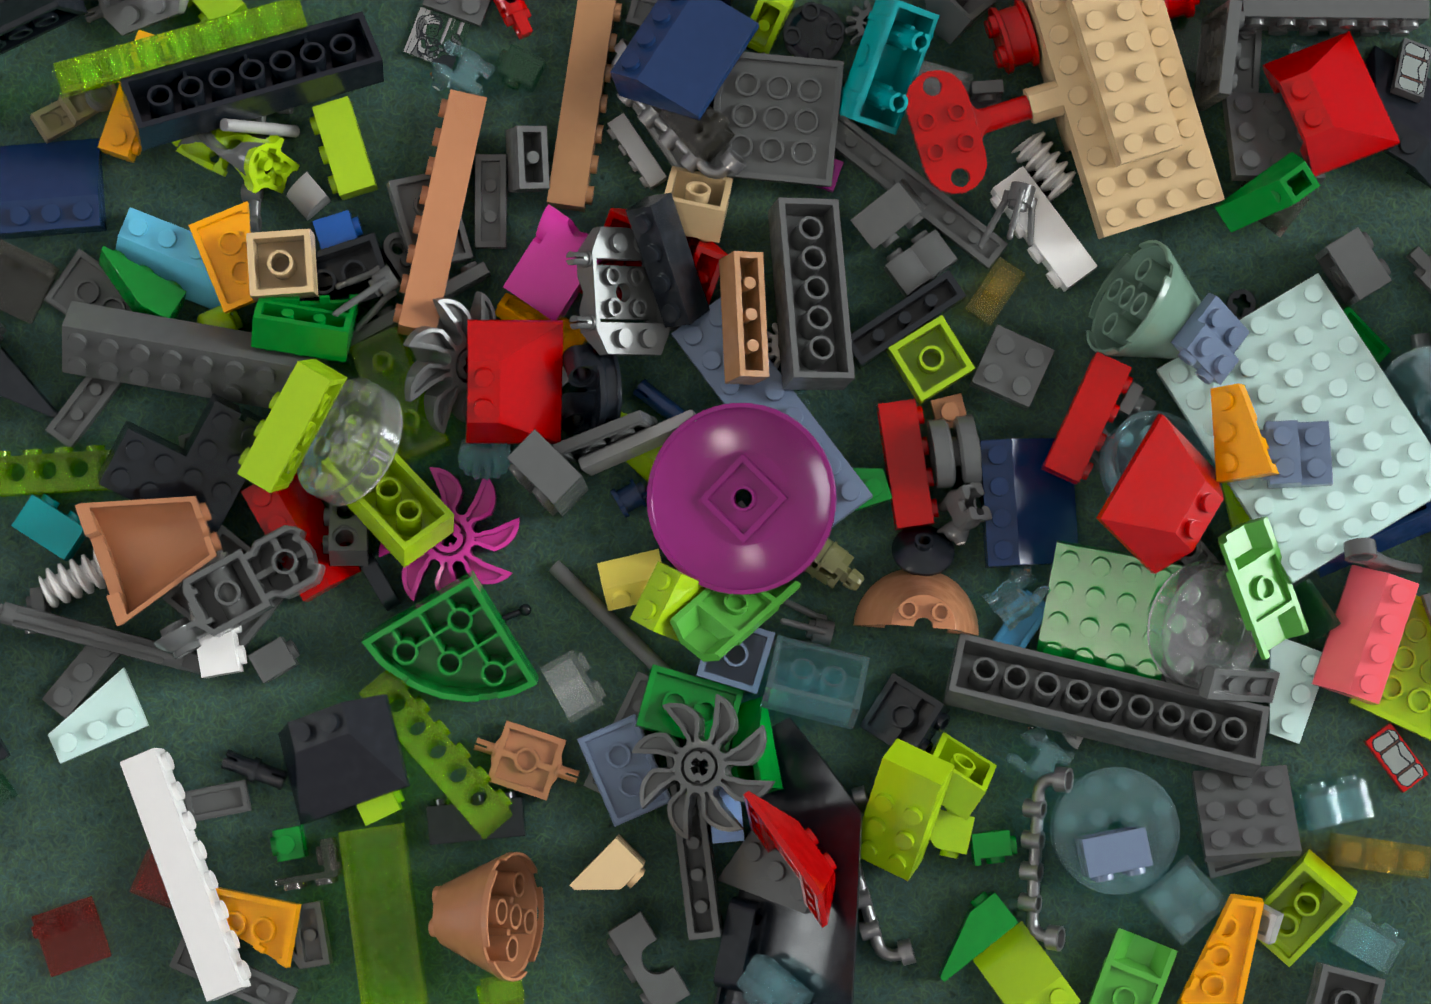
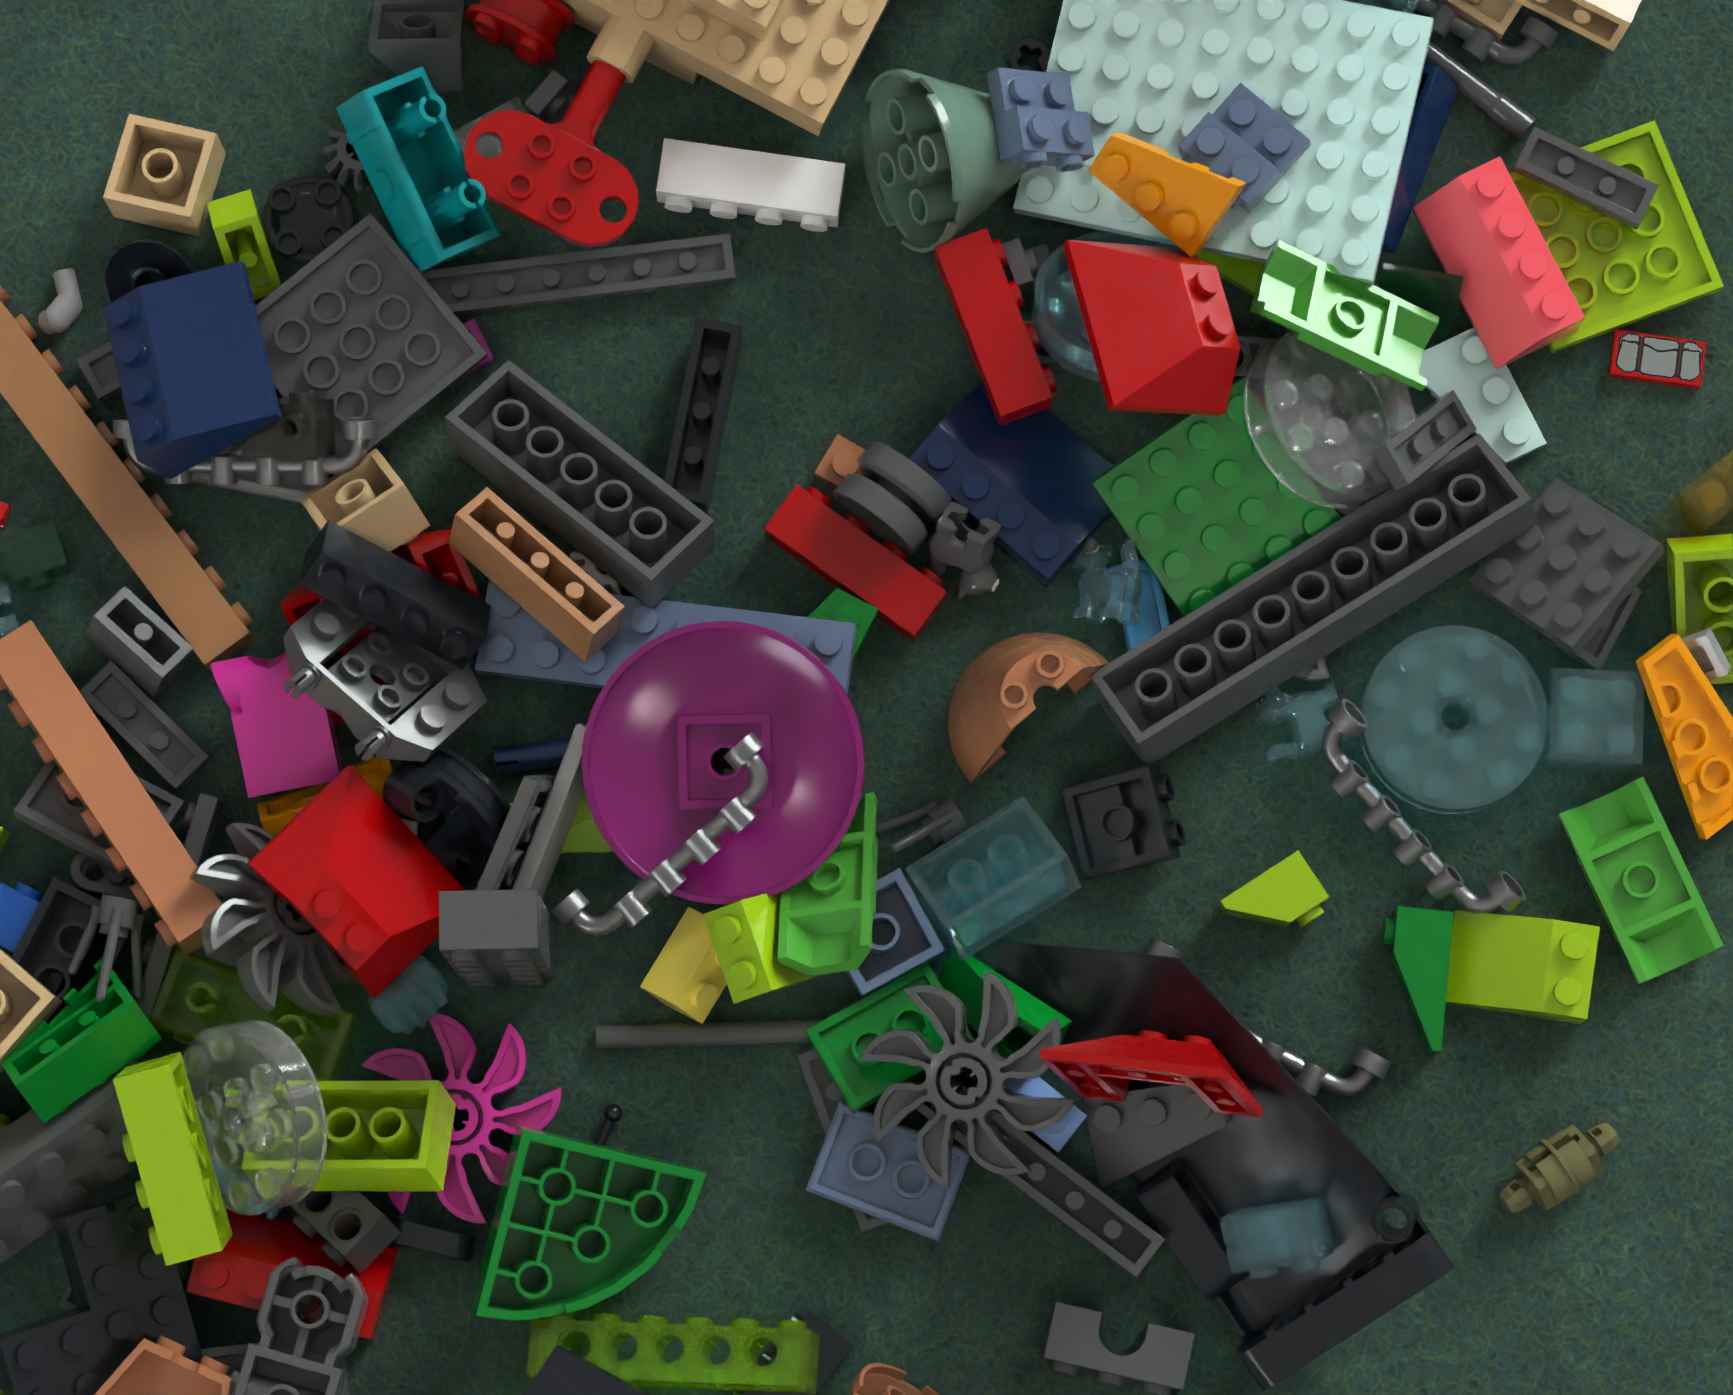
camera: 45 degrees left, 5 degrees down
(526, 760) = (775, 1267): nougat plate -> none
(573, 685) = (744, 1139): clear brick -> none
(612, 869) = (980, 1277): tan slope -> none
(630, 497) = (604, 882): dark blue brick -> none
(636, 150) = (246, 521): light grey piece -> none
(689, 527) = (699, 846): none -> flat silver bar
(833, 565) = (889, 741): olive piece -> none
(888, 214) = (577, 322): dark grey brick -> none
(903, 808) = (1217, 910): lime brick -> none
(919, 263) = (658, 343): dark grey brick -> none
(922, 551) = (964, 633): black dish -> none
(930, 359) = (771, 429): lime brick -> none
(969, 777) = (1234, 829): lime brick -> none
(992, 845) = (1346, 863): green brick -> none
(994, 291) = (766, 296): clear yellow tile -> none
(1011, 367) = (863, 355): dark grey brick -> none
(1019, 199) = (697, 172): dark grey plant -> none
(1045, 165) = (685, 116): white piece -> none
(1114, 852) = (1474, 736): sand blue brick -> none
(1336, 803) = (1646, 465): clear light blue brick -> none
(1365, 552) = (1414, 179): dark grey piece -> none

